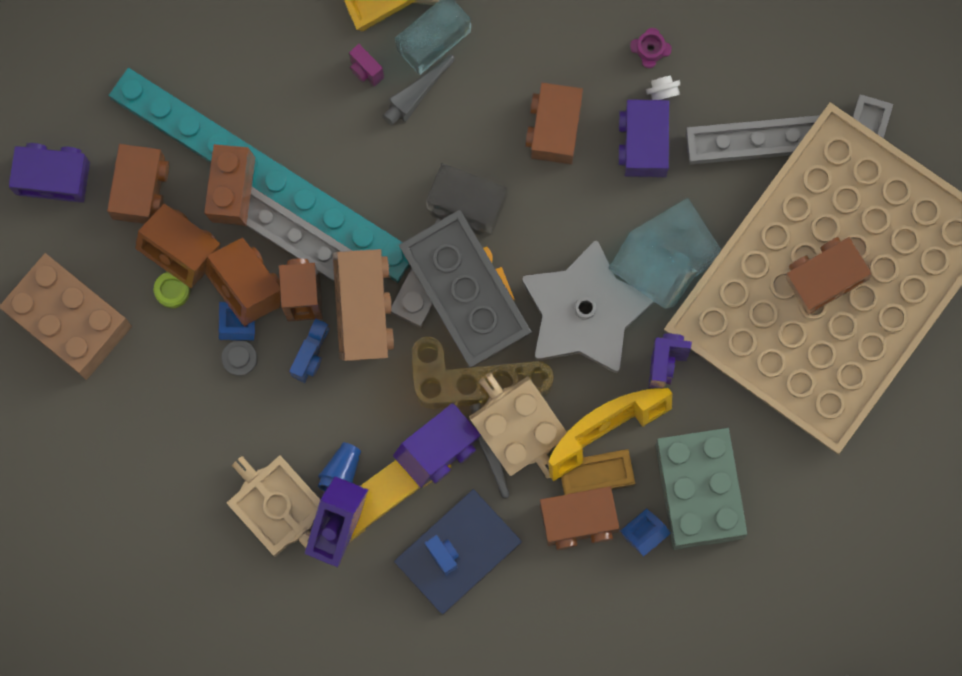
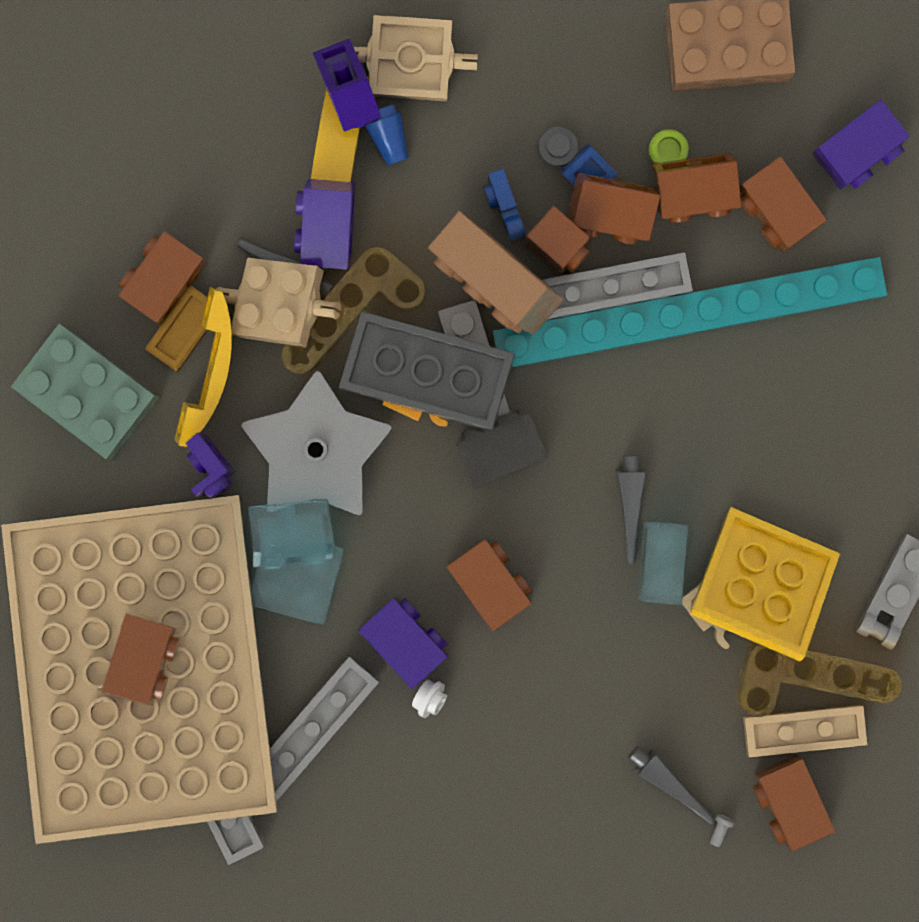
camera: 135 degrees right, 10 degrees up
(229, 185) = (700, 271): dark orange brick -> none
(365, 66) = (692, 481): magenta plate -> none
(443, 553) = (238, 141): blue plate -> none
(478, 538) = (233, 160): dark blue tile -> none
(645, 532) = (98, 316): blue plate -> none
(650, 37) = (467, 733): magenta plate -> none

